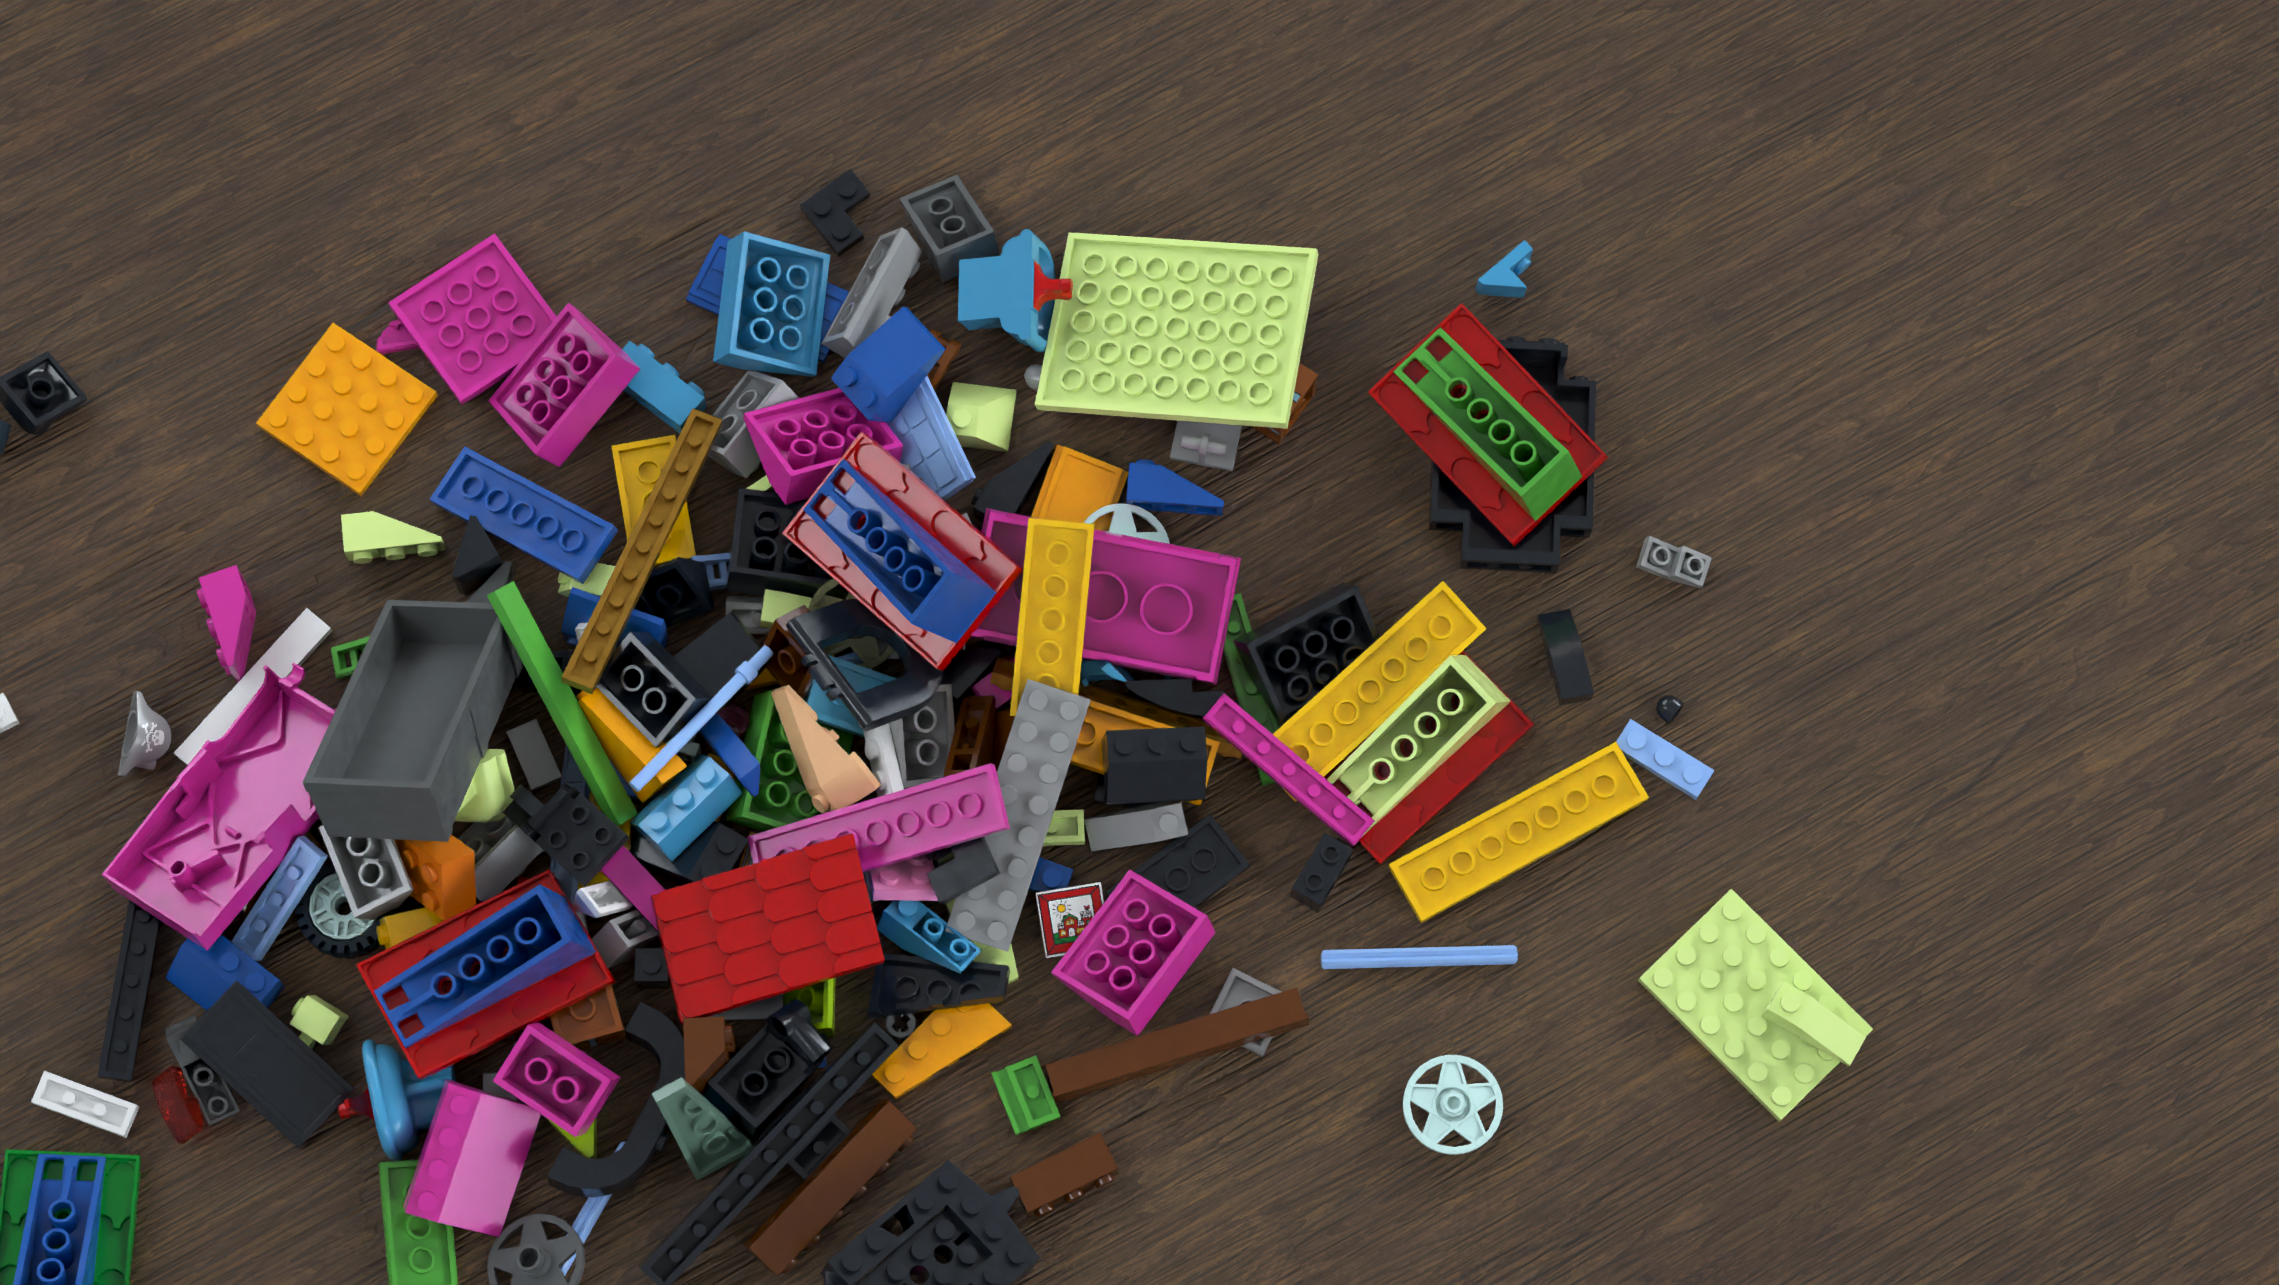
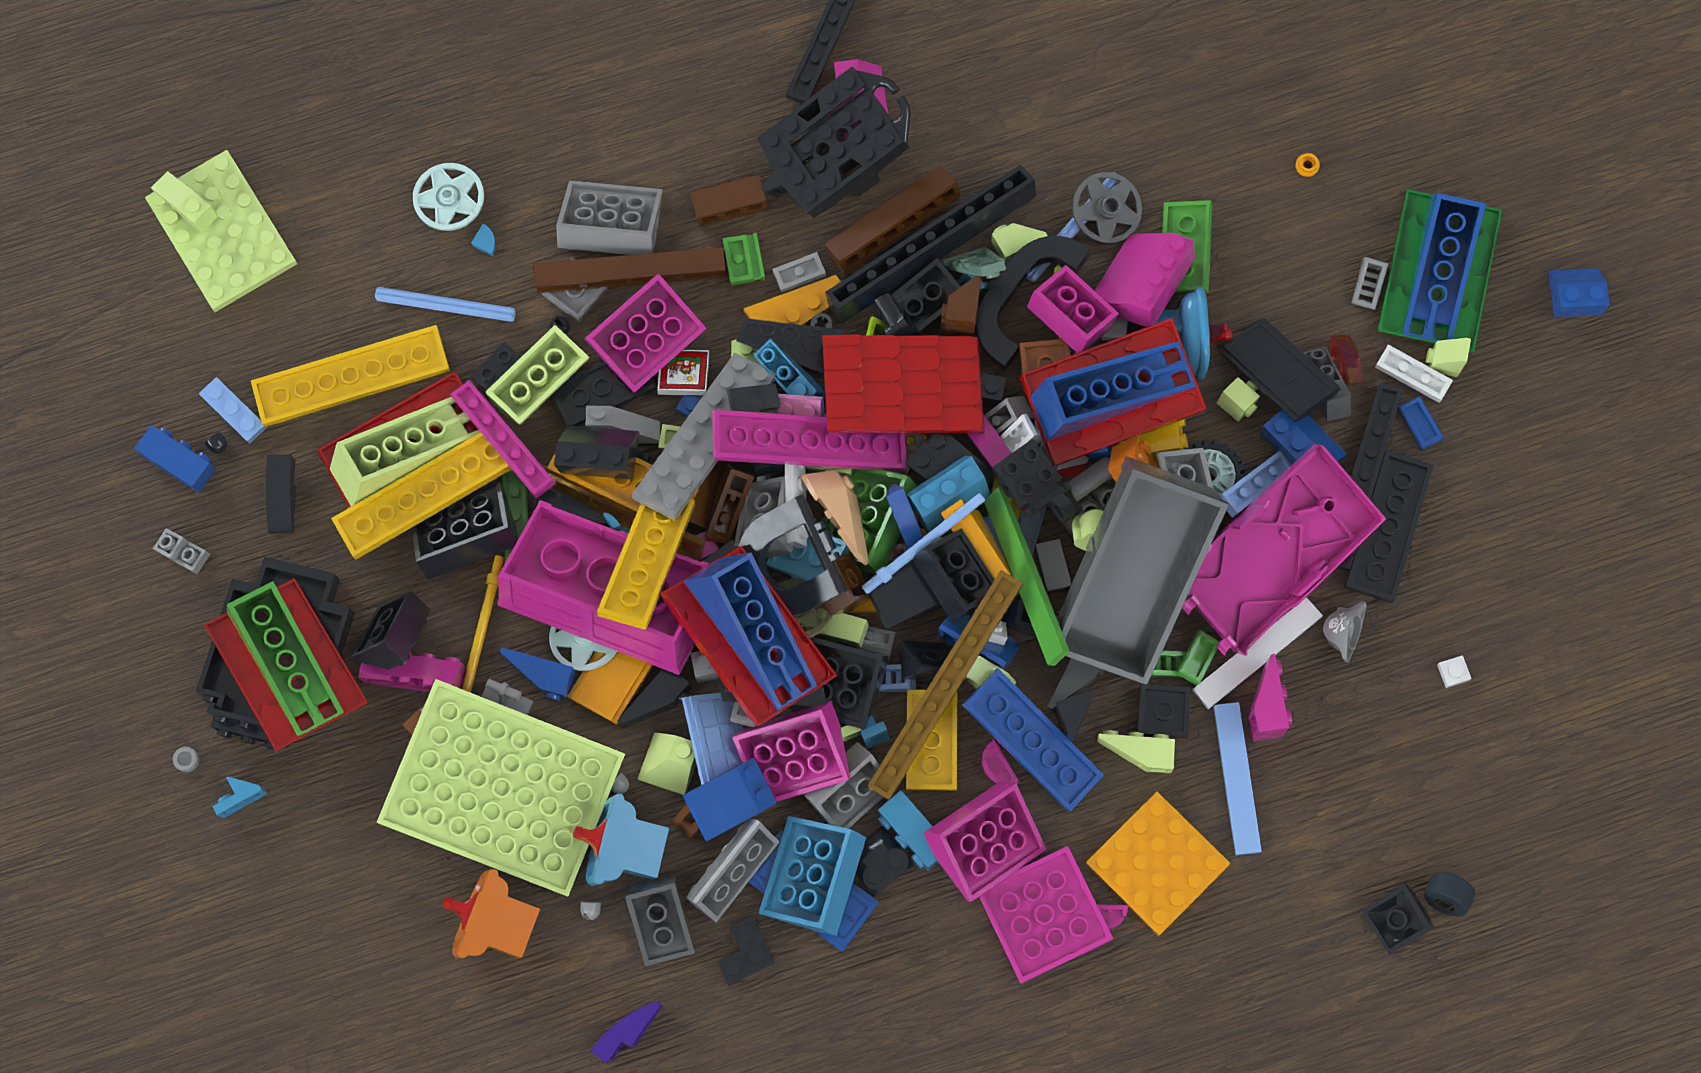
camera: 160 degrees left, 0 degrees up
(39, 1129) = (1449, 356): none -> yellowish green slope
(70, 1040) = (1420, 423): none -> blue tile
(90, 909) = (1383, 554): none -> black plate
(154, 1253) = (1374, 264): none -> light grey slope
(260, 530) = (1237, 779): none -> light blue tile
(329, 668) = (1197, 657): none -> bright green tile
(361, 591) = (1164, 710): none -> black plate
(564, 484) = (996, 765): none -> dark pink tile
(654, 1190) = (1011, 238): none -> yellowish green slope
(689, 345) = (881, 862): none -> black slope
(727, 496) = (874, 733): none -> dark azure tile
(946, 1091) = (799, 272): none -> light grey plate
(962, 92) = (626, 1031): none -> dark purple slope
(1039, 224) = (590, 910): none -> light grey hinge
(1153, 176) = (491, 919): none -> orange piece
(1223, 1120) = (609, 218): none -> light grey slope
(1254, 963) = (563, 320): none -> black hinge
(1258, 597) = (492, 581): none -> yellow bar
(1263, 868) = (536, 375): none -> yellowish green slope
(1330, 461) = (416, 673): none -> dark pink wedge
(1367, 496) = (392, 632): none -> black slope
(1388, 1058) = (484, 240): none -> dark azure tile
(1588, 309) = (186, 759): none -> light grey tile
(1717, 677) = (175, 458): none -> blue brick

